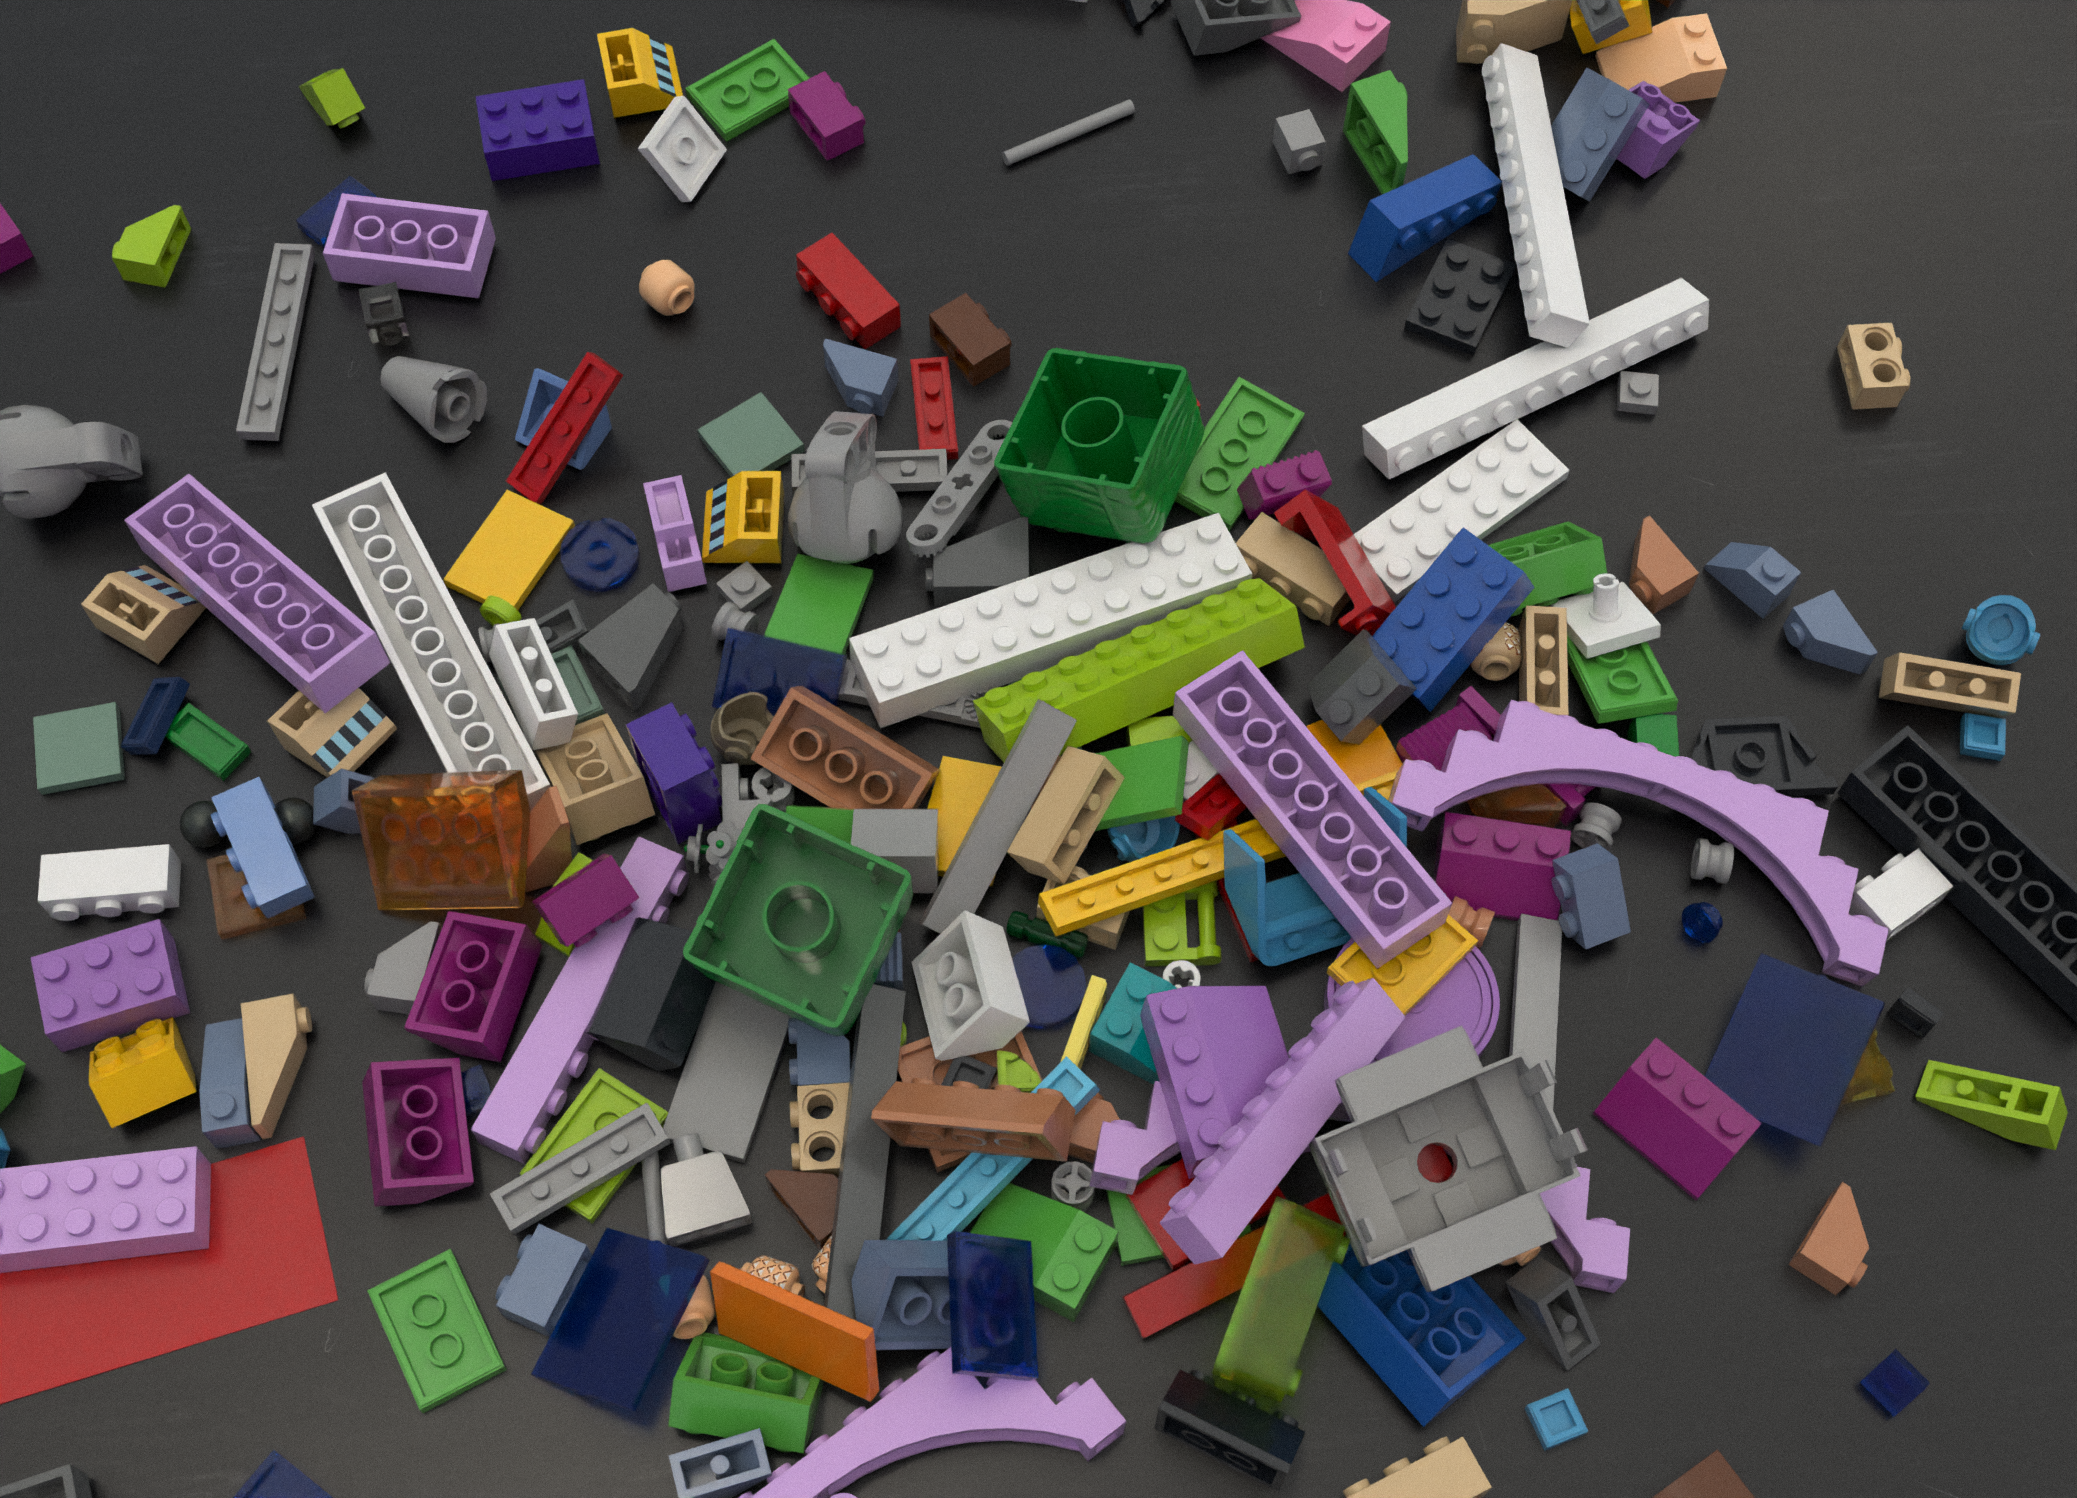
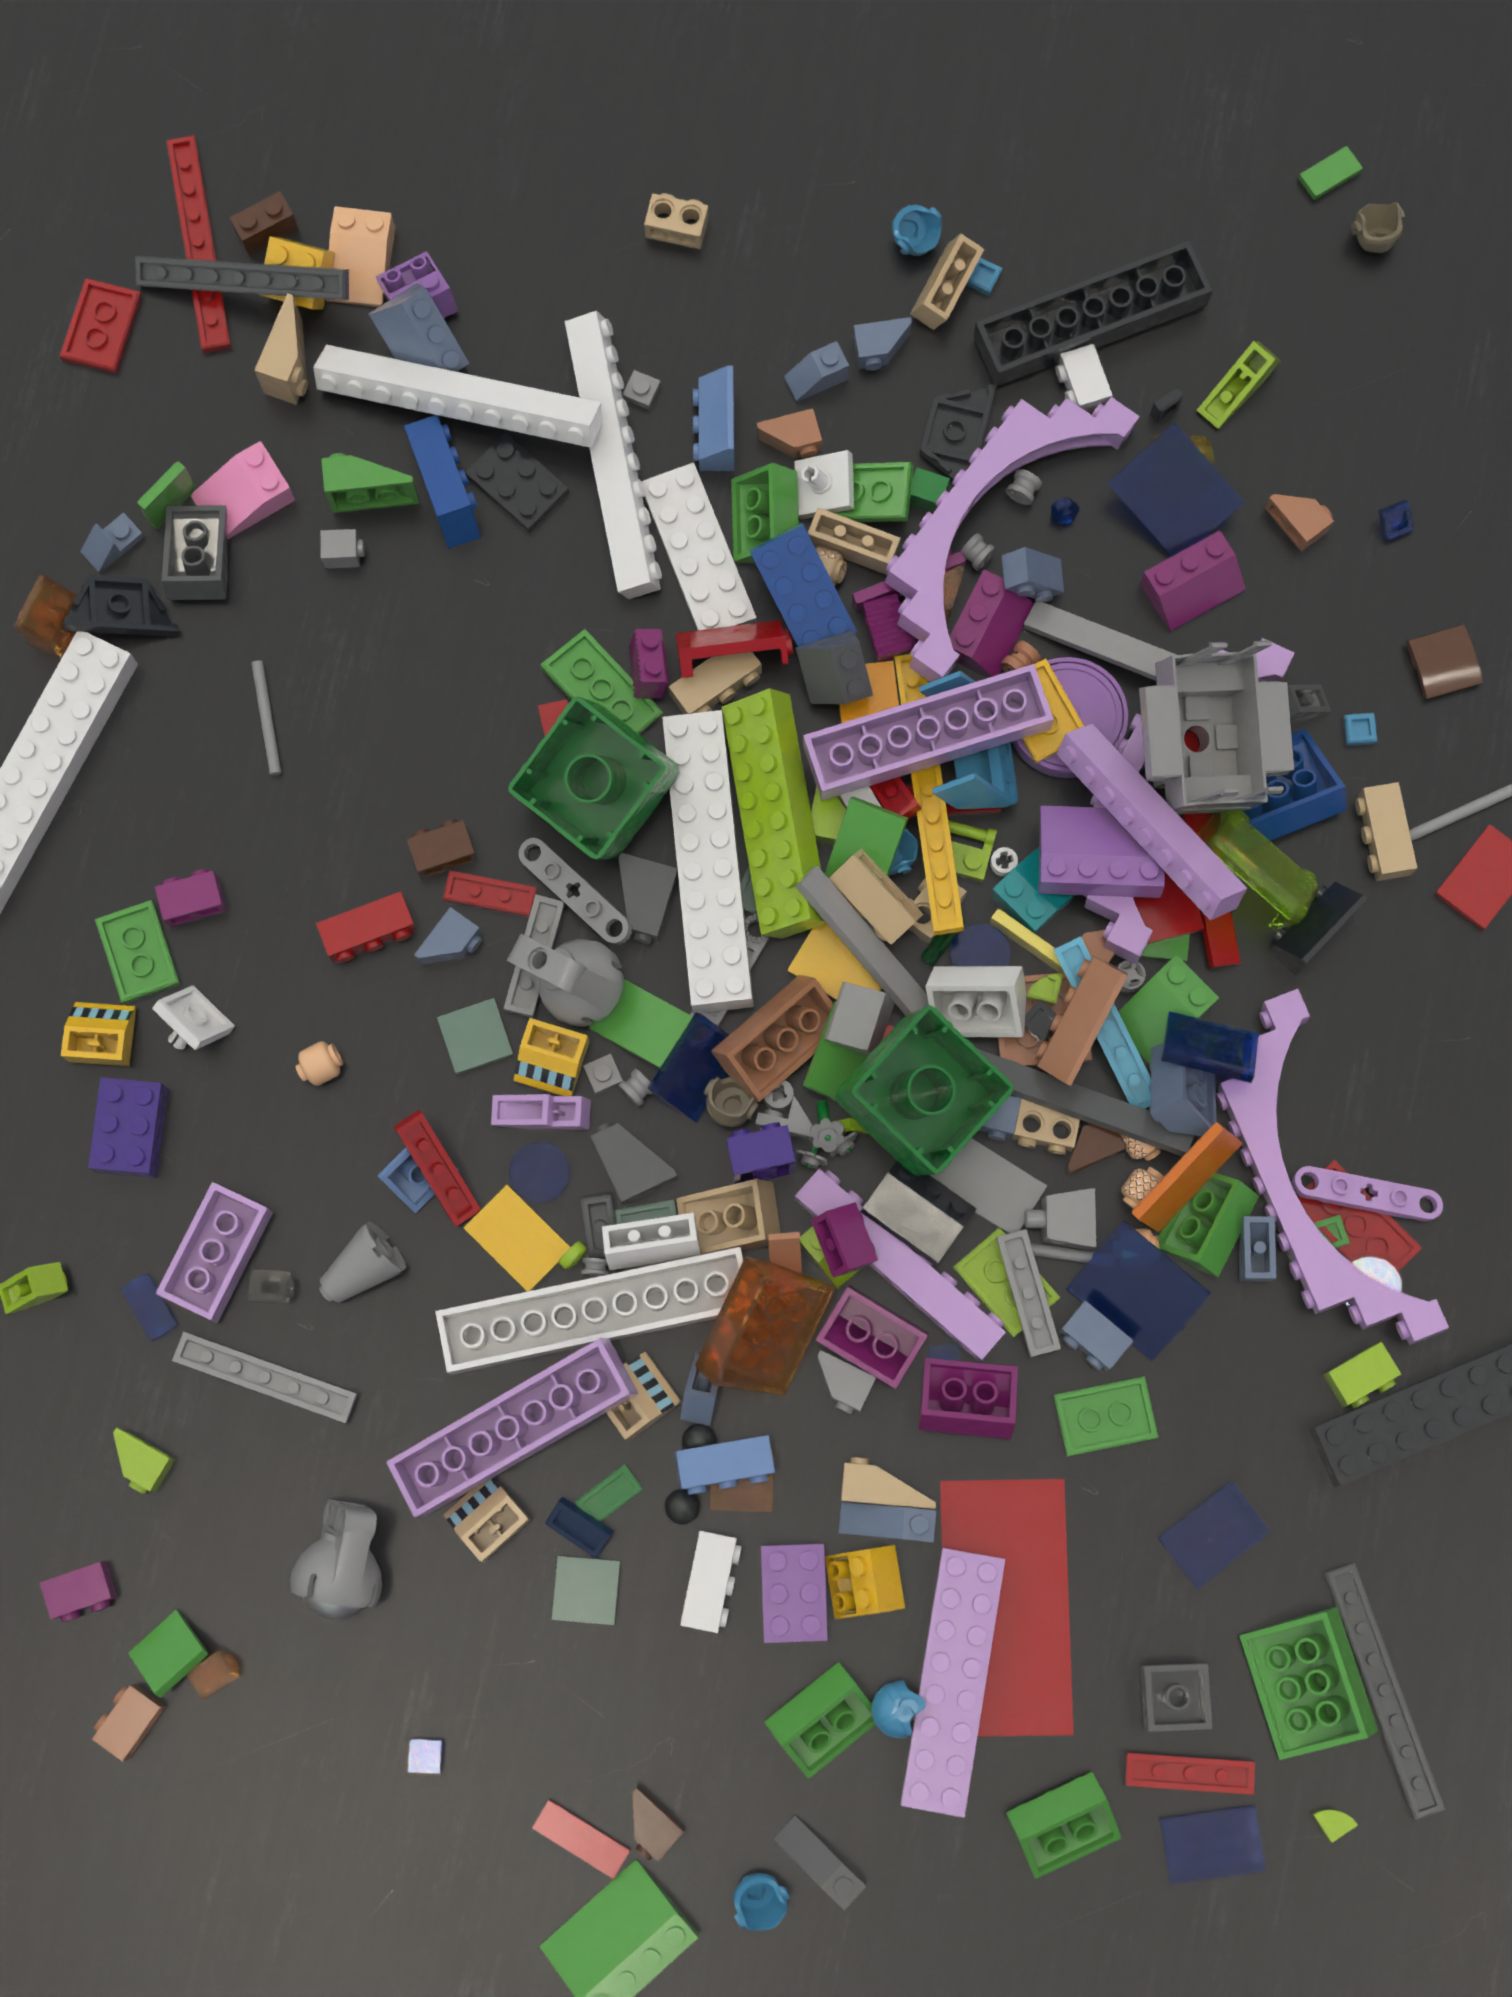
camera: 70 degrees left, 15 degrees up
(1633, 477) = (715, 421): none -> medium blue slope

